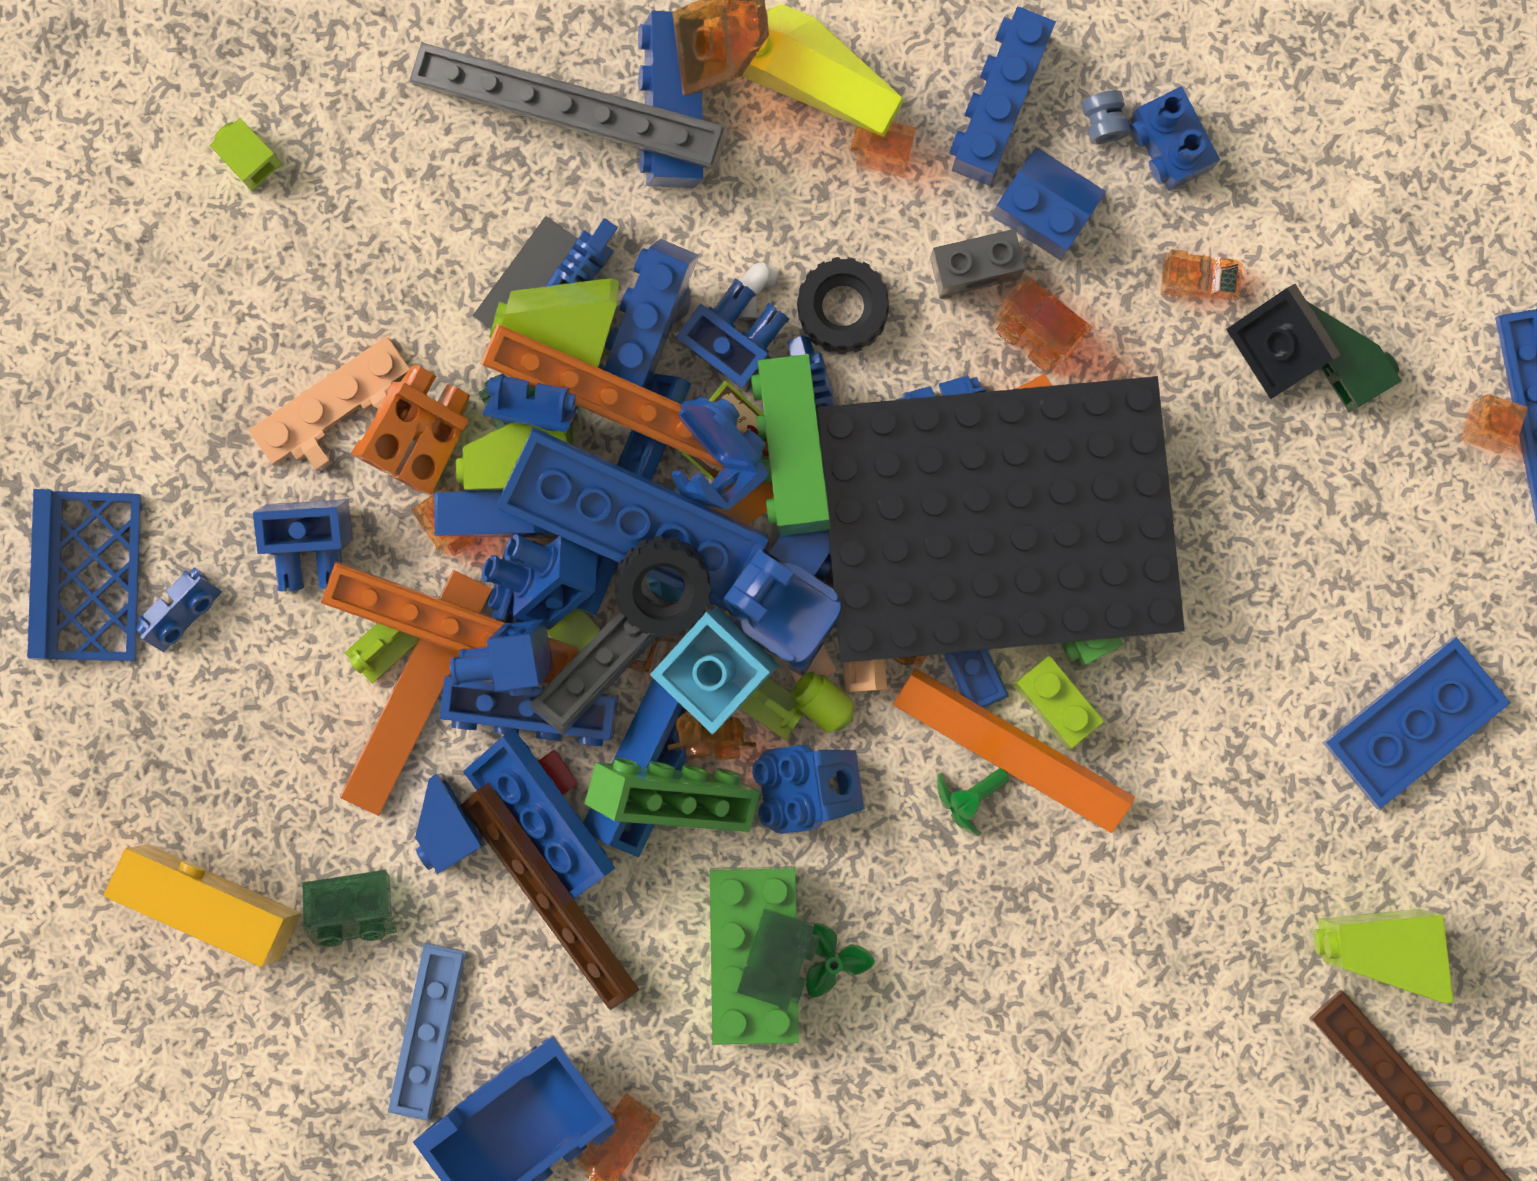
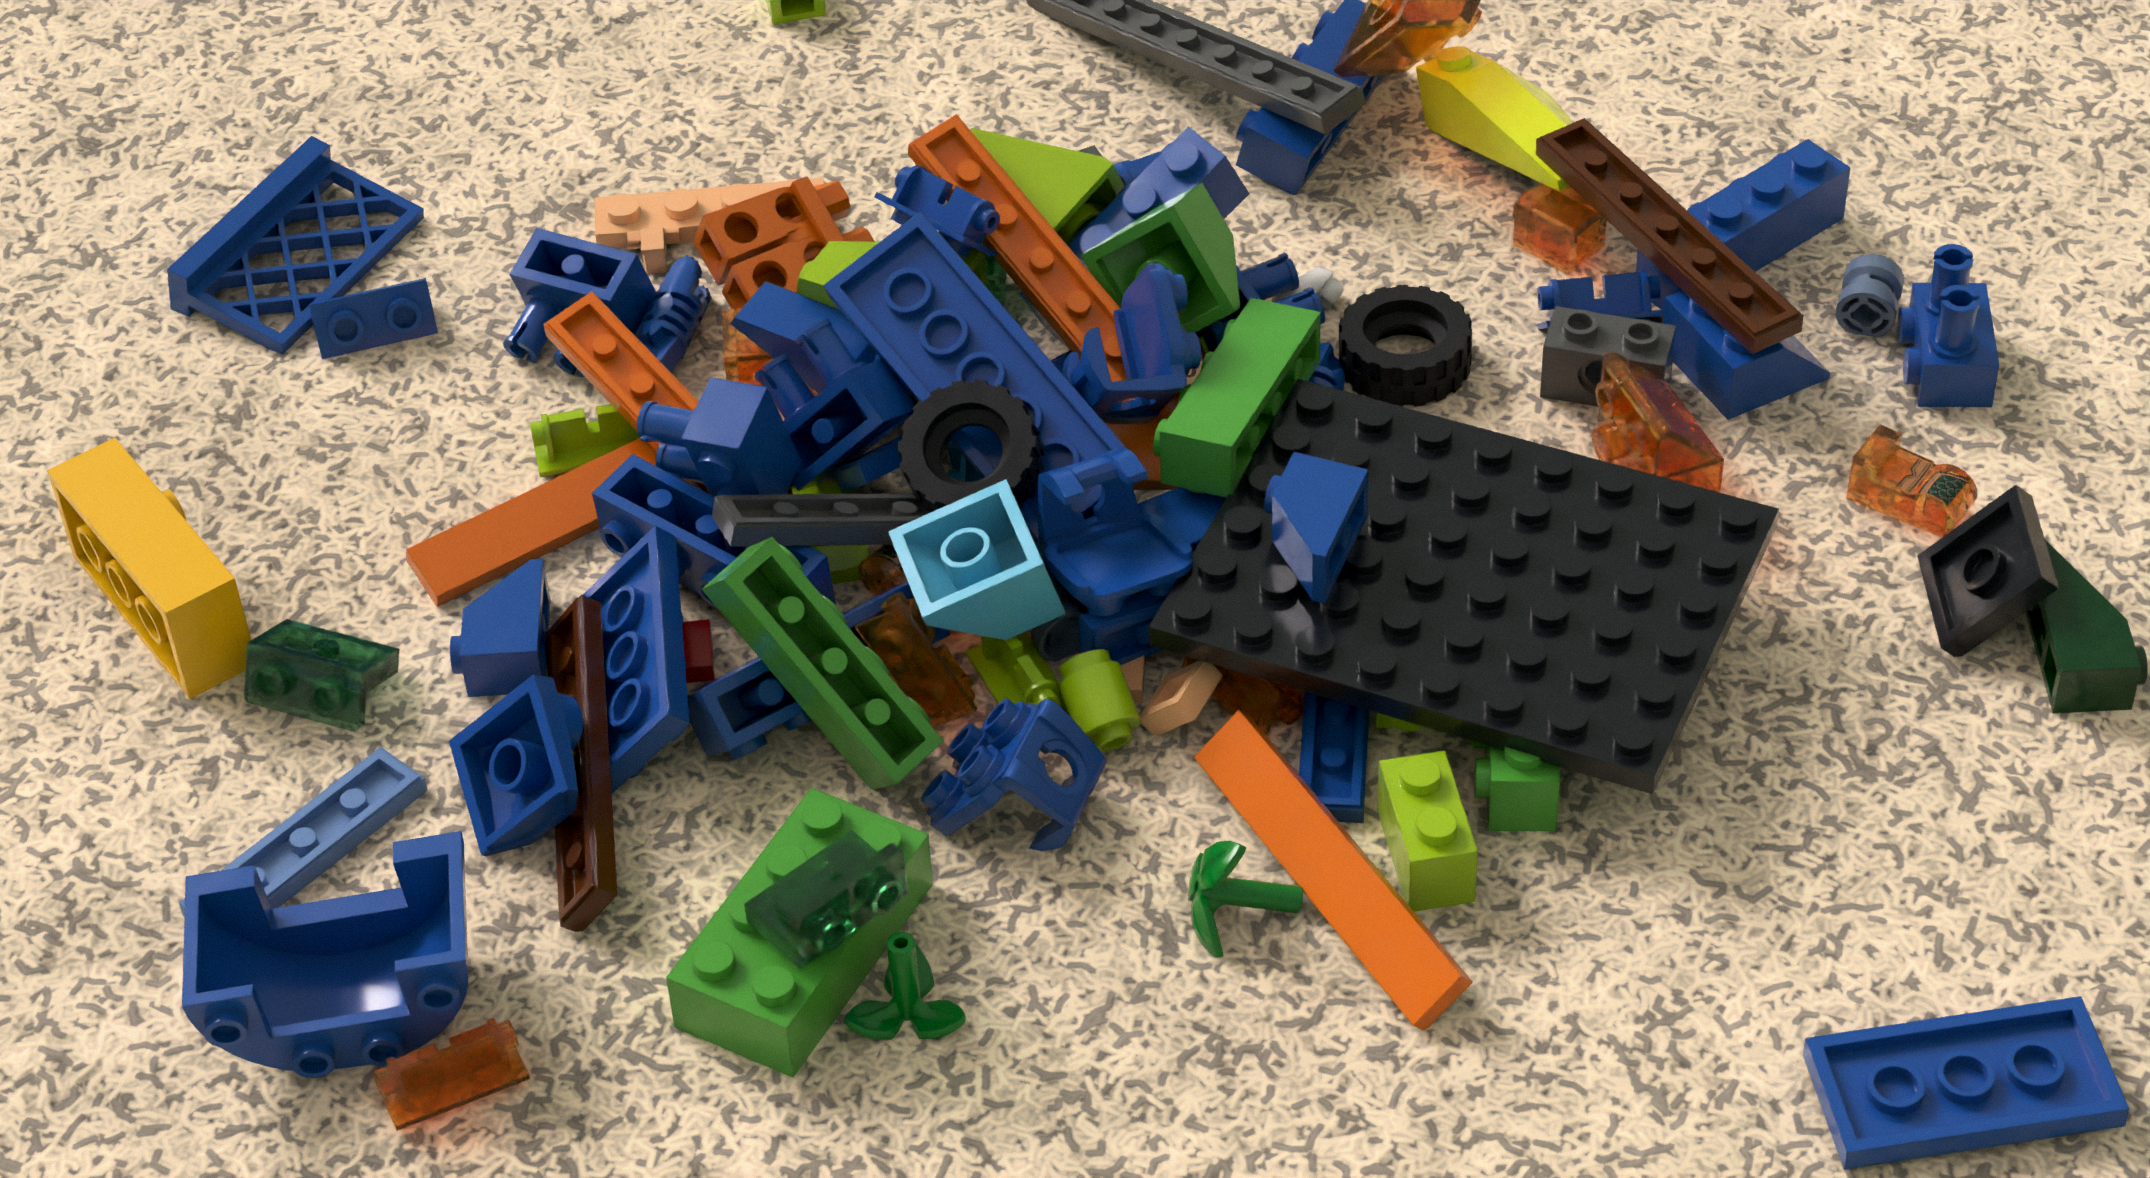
camera: 30 degrees right, 40 degrees down
(373, 521) = (675, 313): none -> blue hinge
(524, 930) = (520, 765): none -> blue slope
(692, 357) = (1189, 241): none -> bright green slope
(907, 549) = (1317, 518): none -> blue slope
(933, 225) = (1624, 296): none -> blue hinge
(977, 156) = (1669, 236): none -> reddish brown tile

